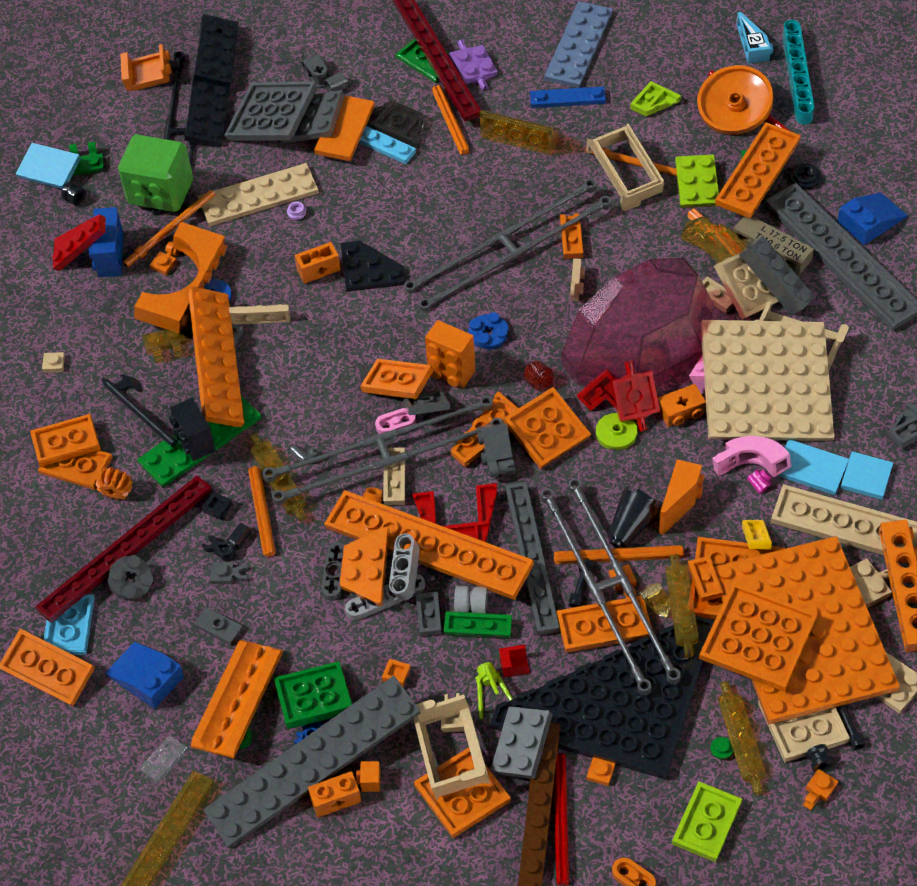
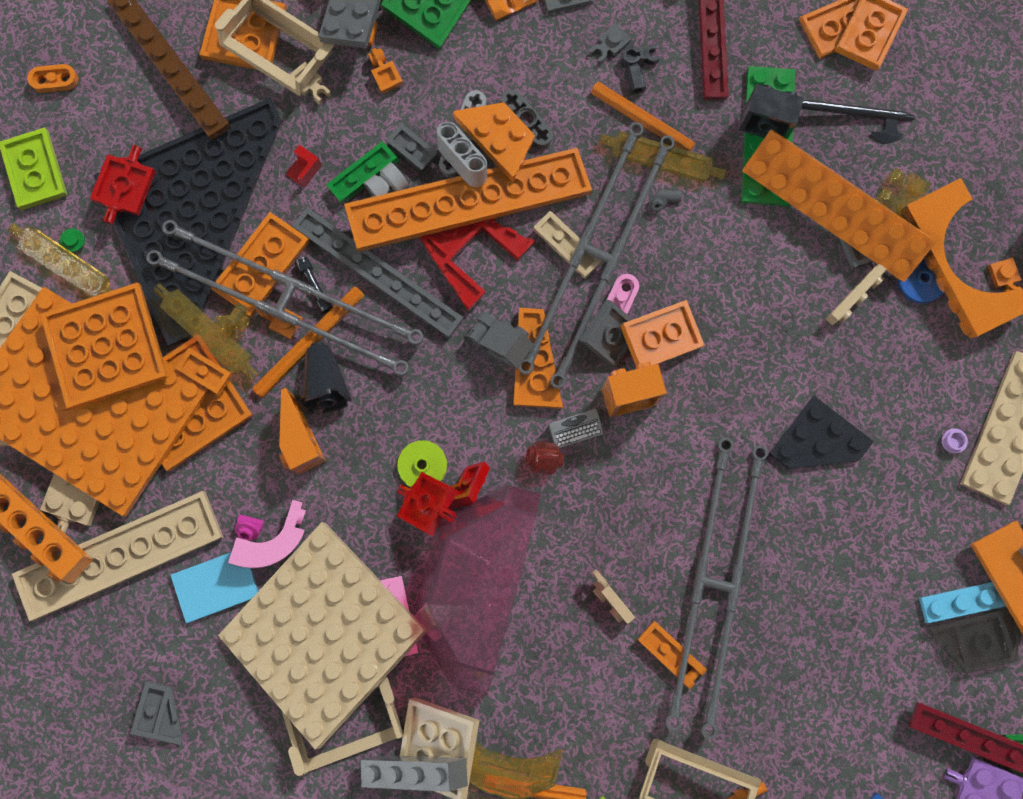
camera: 130 degrees right, 25 degrees up
(53, 362) = (973, 93): tan plate -> none
(114, 483) = (783, 25): orange gear -> none
(217, 506) = (682, 88): black plate -> none
(317, 262) = (866, 392): orange brick -> none
(373, 494) = (571, 212): orange plate -> none
(450, 119) = (936, 696): orange axle -> none
(489, 676) = (312, 136): lime plant -> none
(492, 322) = (651, 462): blue plate -> none
(501, 379) = (576, 428): none -> slope
(518, 132) = (849, 740): clear yellow slope -> none
(521, 742) = (224, 95): plate -> none
(546, 427) = (481, 406): orange plate -> none
(561, 822) = (148, 76): red axle -> none
(600, 771) = (152, 138): orange plate -> none
(651, 742) = (122, 184): none -> red plate
(682, 405) = (385, 557): orange brick -> none
(718, 295) = (474, 706): tan hinge -> none
(756, 534) = (201, 461): yellow plate -> none
(866, 475) = (157, 621): medium azure tile -> none

